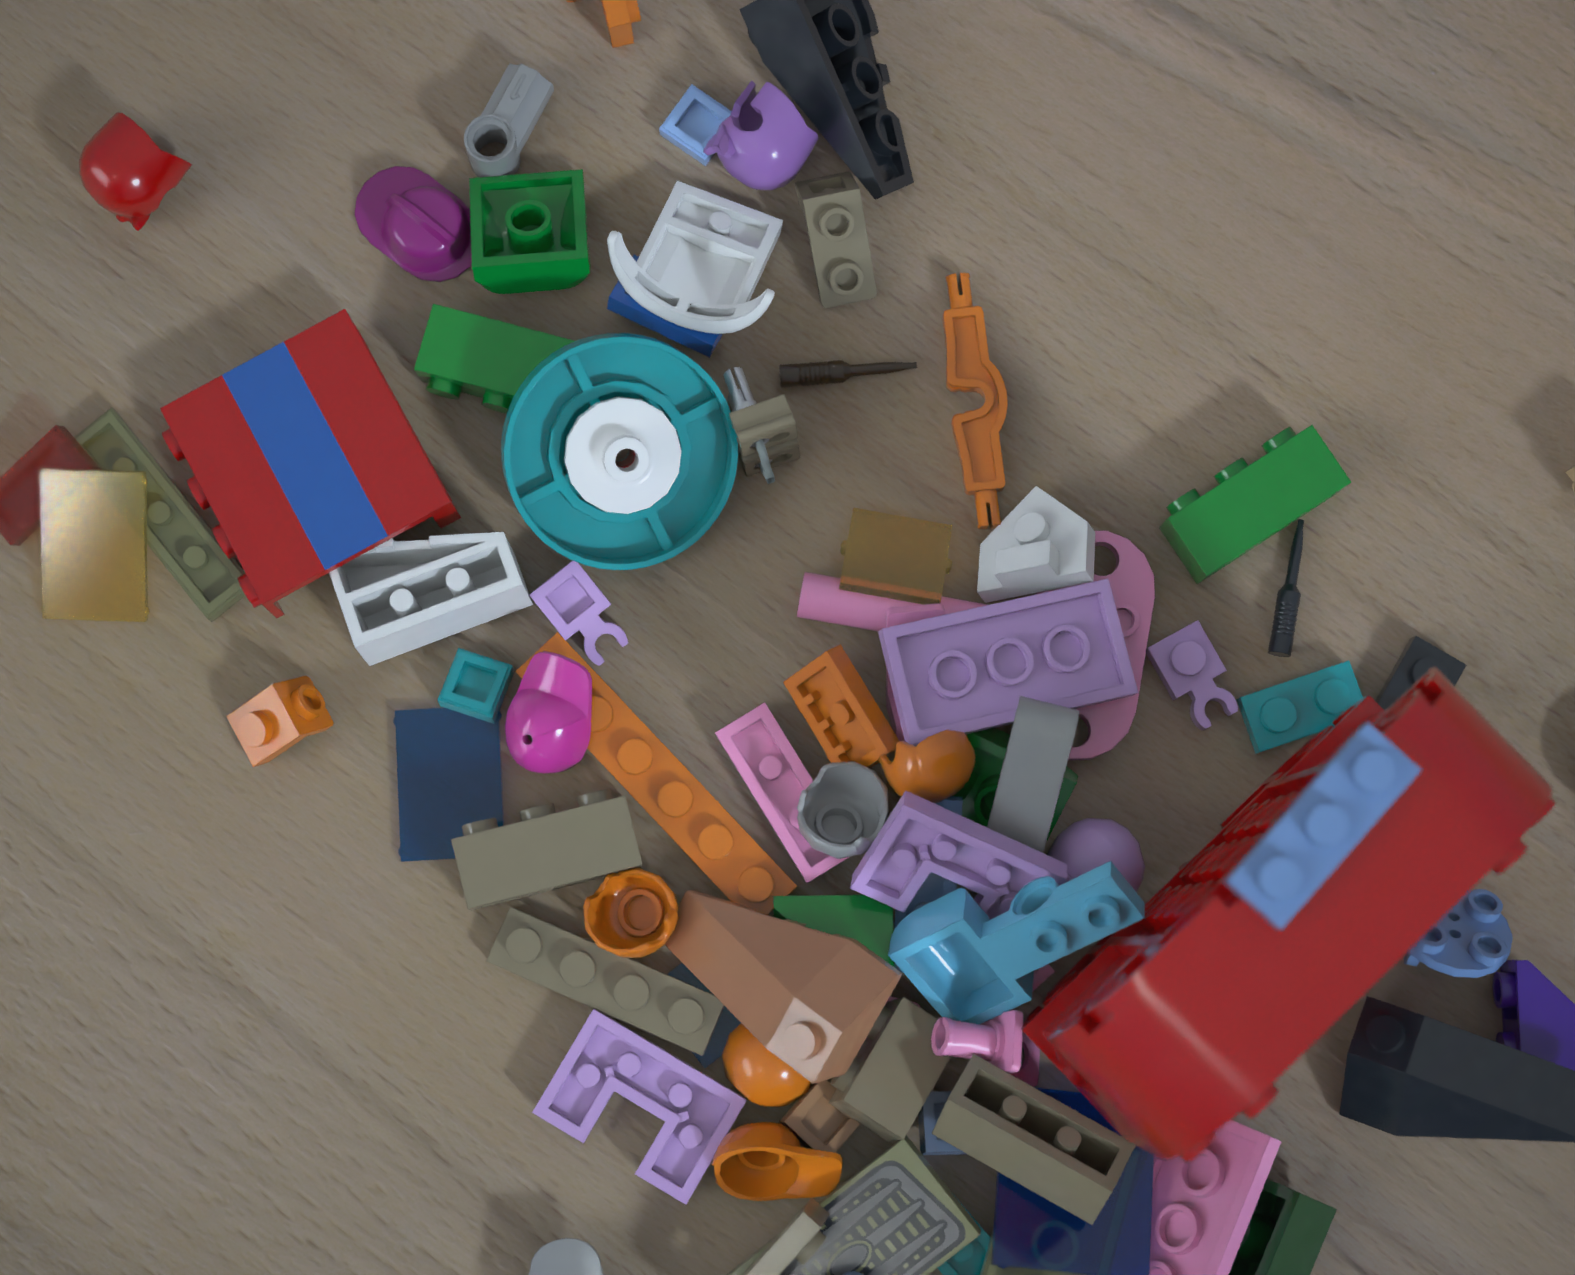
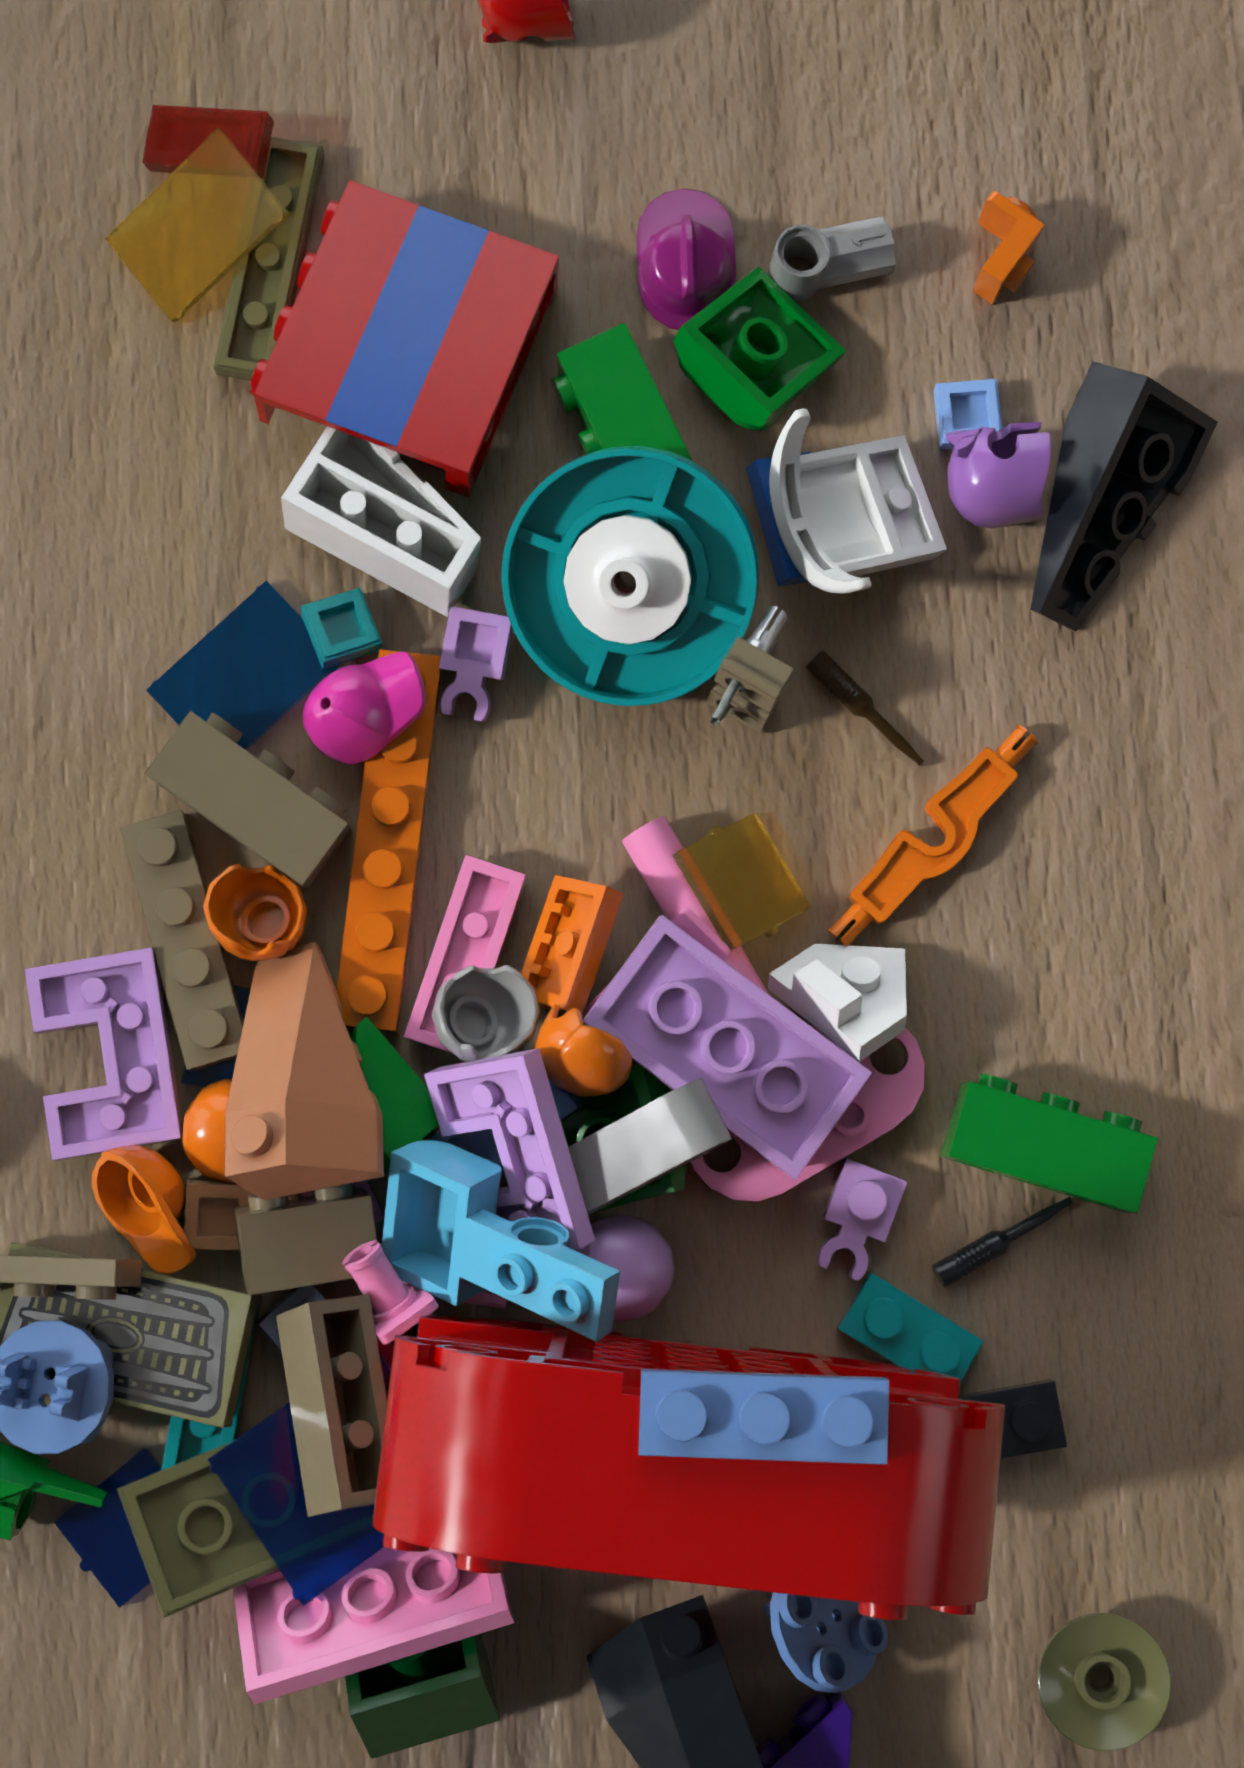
camera: 50 degrees right, 0 degrees up
(279, 719) = (181, 493): orange bracket -> none
(837, 238) = (969, 607): dark tan bracket -> none

